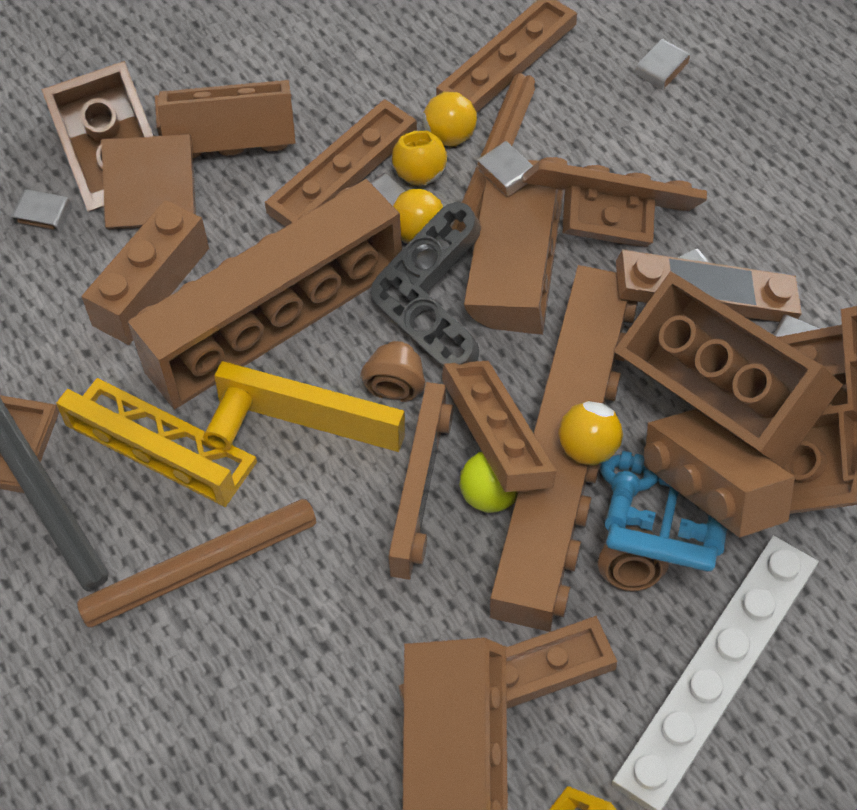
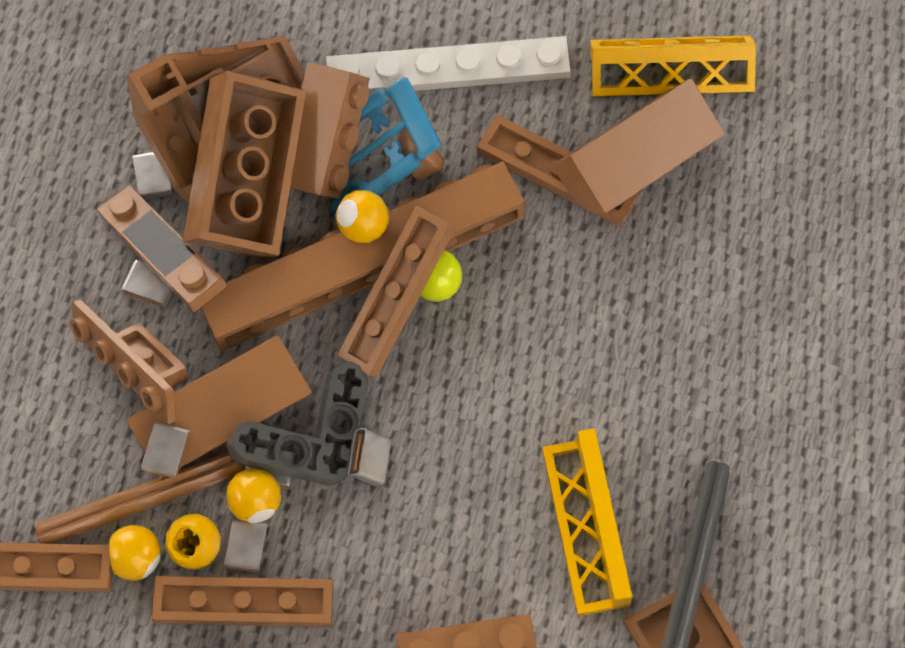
camera: 130 degrees left, 10 degrees up
(196, 563) = (648, 416): medium nougat axle -> none
(267, 292) = (415, 529): medium nougat brick -> none
(300, 403) = (505, 492): yellow piece -> none
(373, 320) = (369, 457): none -> flat silver piece
(394, 372) = (401, 404): medium nougat cone -> none
(408, 543) = (419, 348): medium nougat plate -> none

